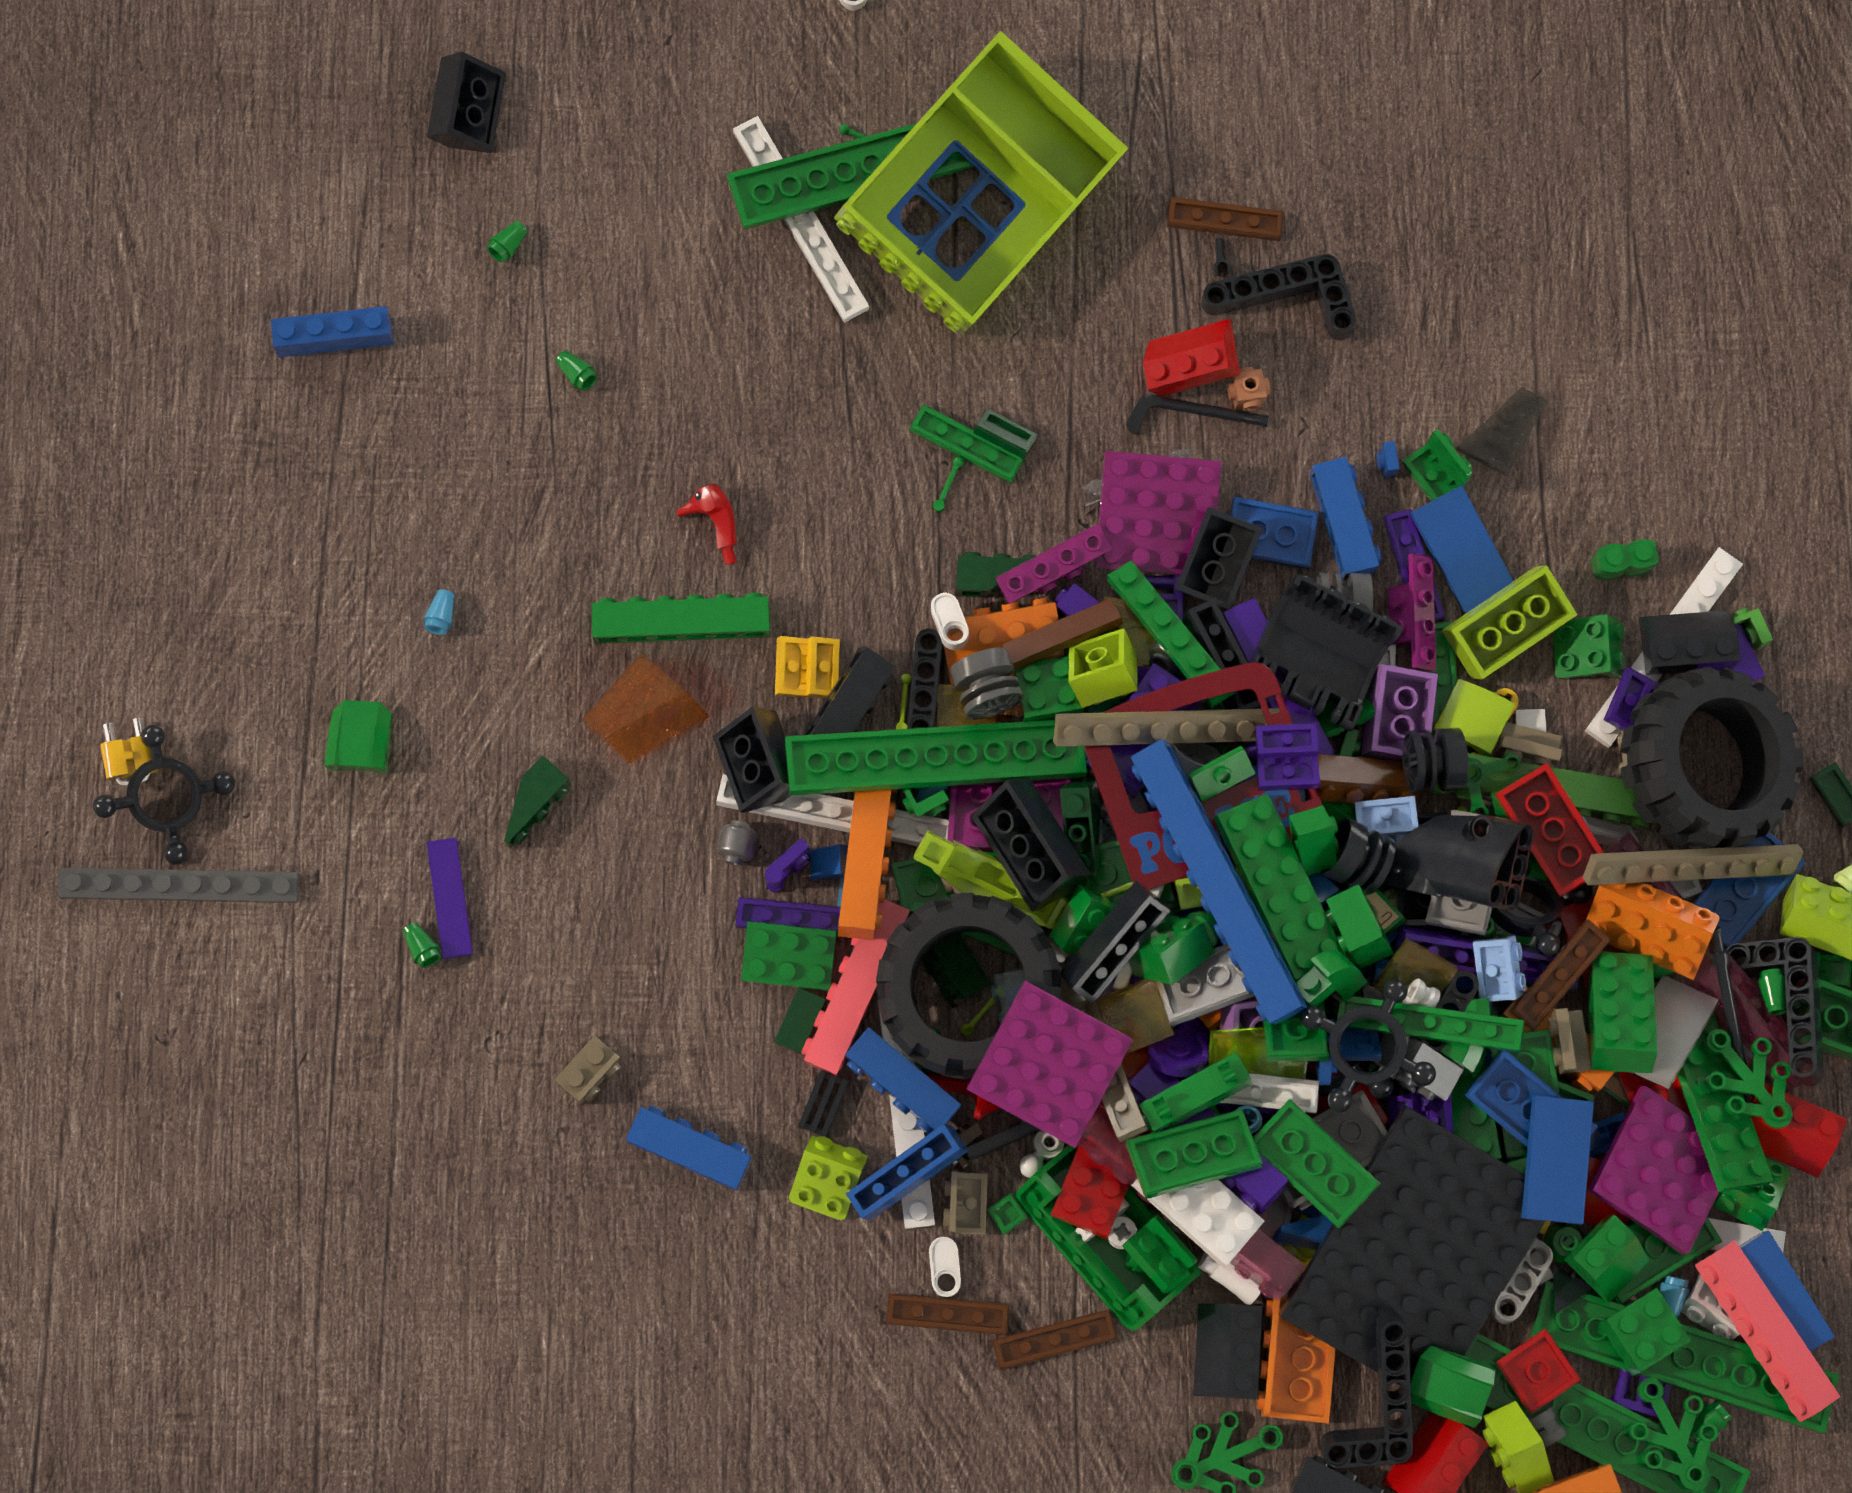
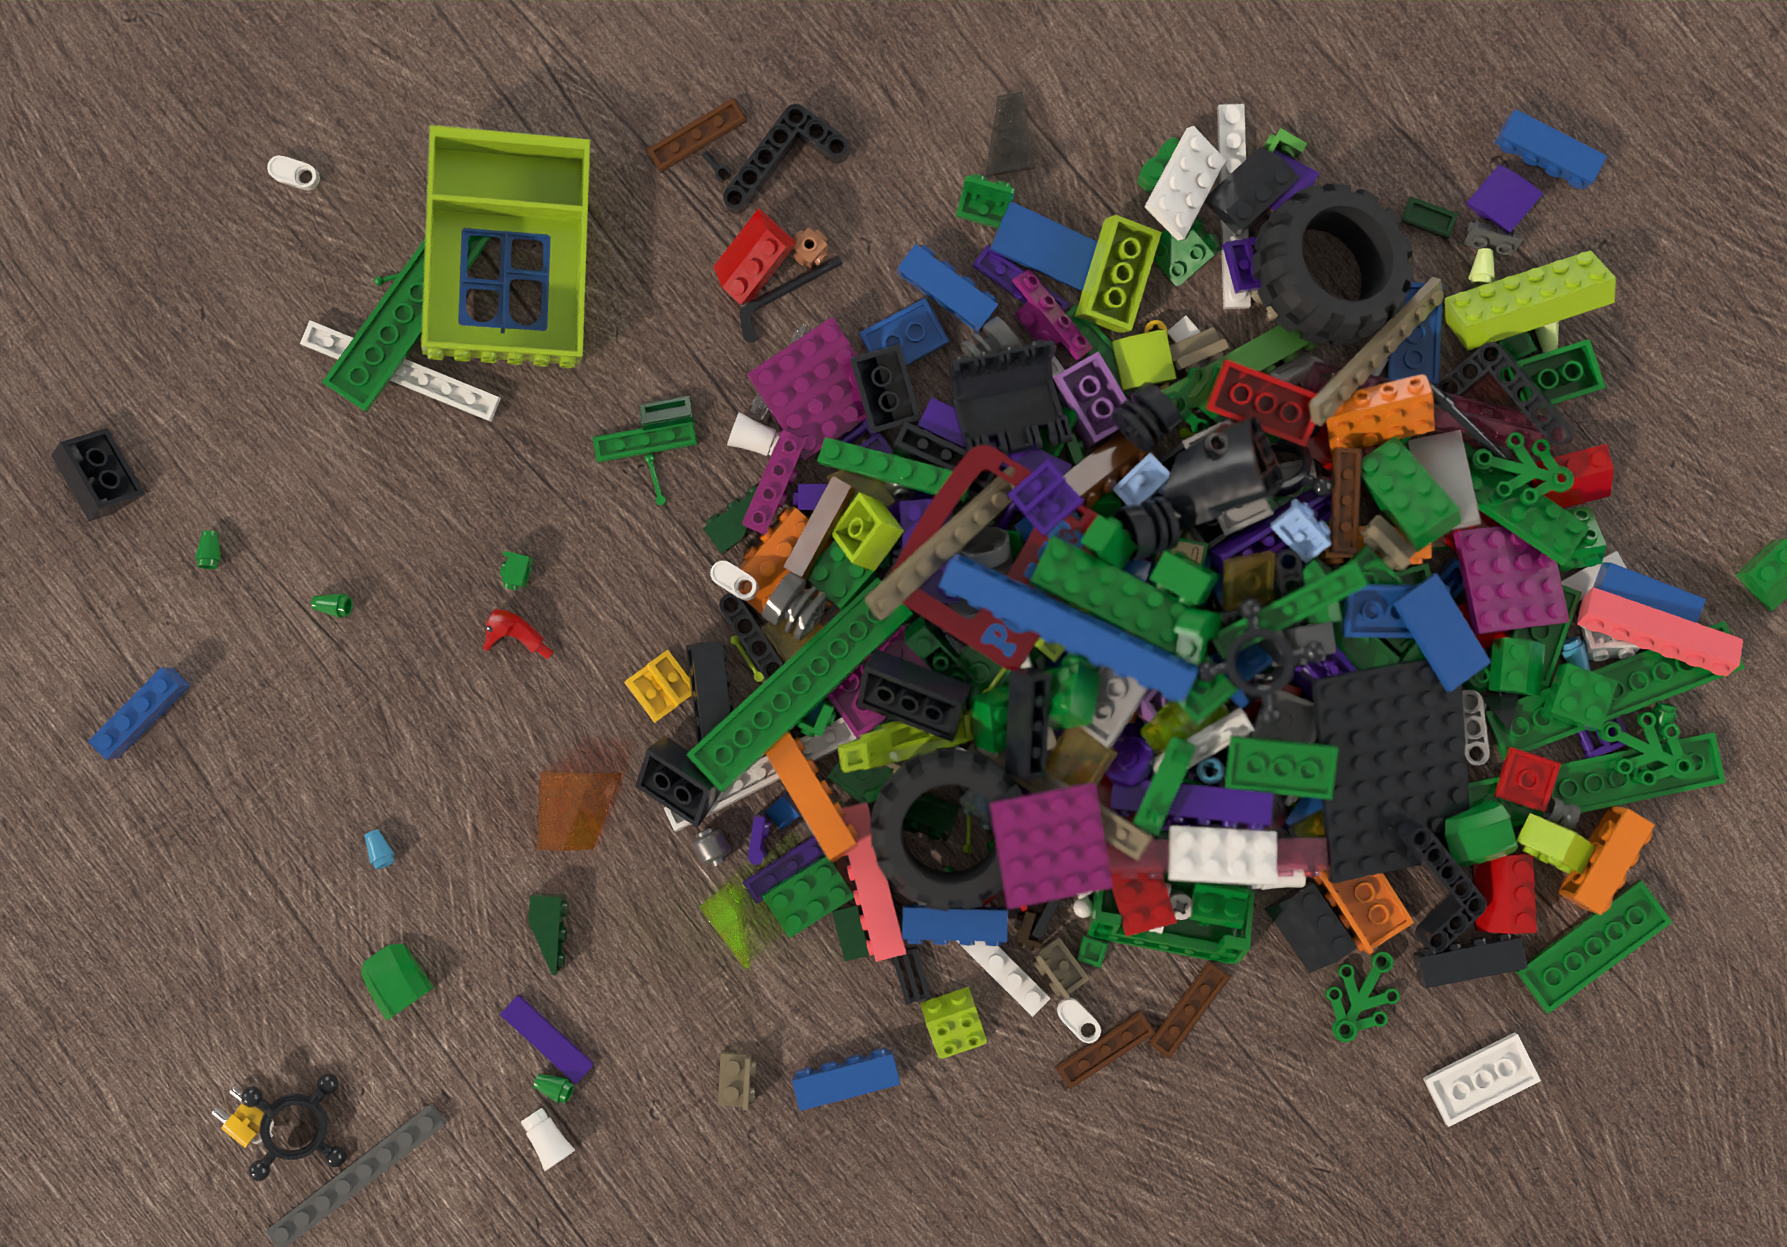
camera: 35 degrees left, 10 degrees up
(376, 987) = (546, 1139): none -> white plant
(680, 619) = (547, 723): green brick -> none
(704, 915) = (728, 917): none -> clear neon green slope
(761, 465) = (515, 570): none -> green brick
(907, 1172) = (1007, 984): blue brick -> none
(1066, 510) = (753, 435): none -> white plant
(1193, 1154) = (1196, 827): green tile -> none
(1221, 773) = (1010, 547): green plate -> none
(1388, 459) = (944, 222): blue plate -> none
(1422, 995) = (1265, 592): white wheel -> none
(1632, 587) = (1185, 183): none -> white plate
(1773, 990) = (1493, 394): green cone -> none

